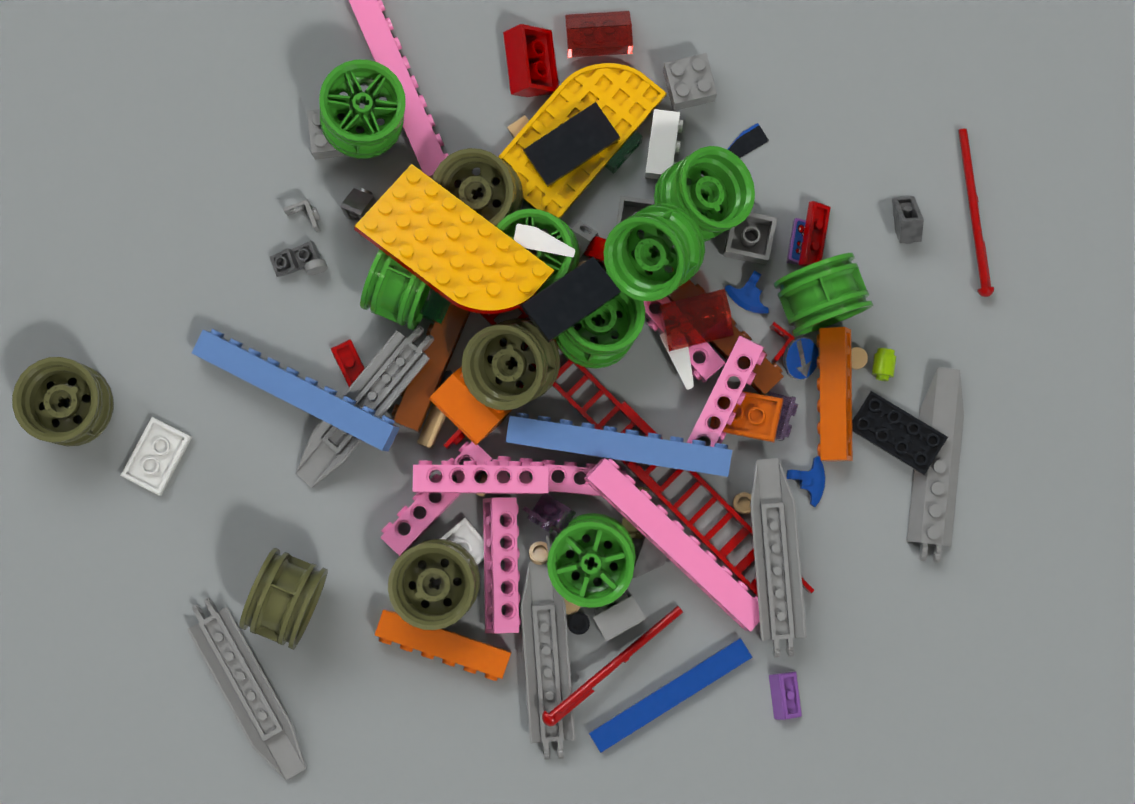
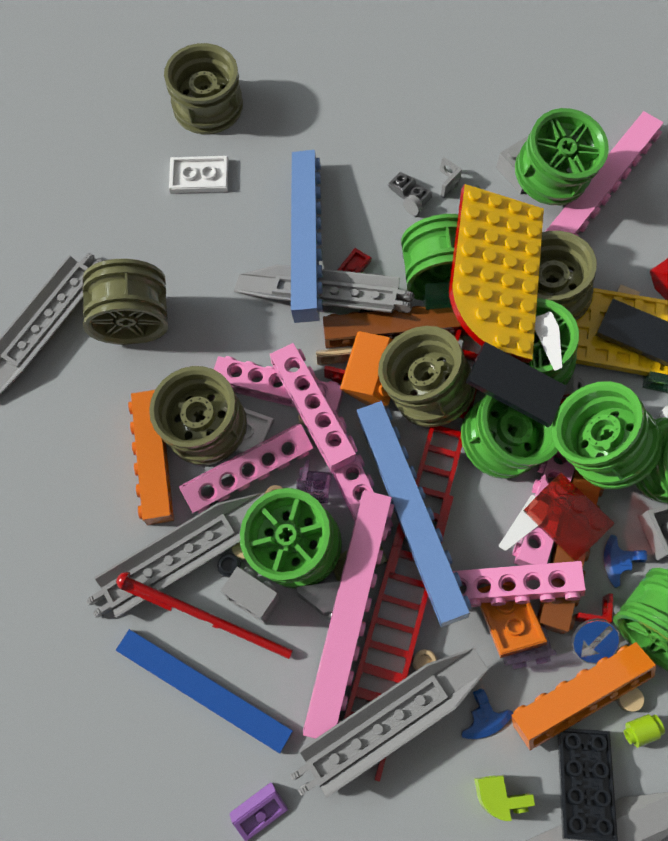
camera: 65 degrees right, 15 degrees down
(874, 508) = (494, 799): none -> lime brick

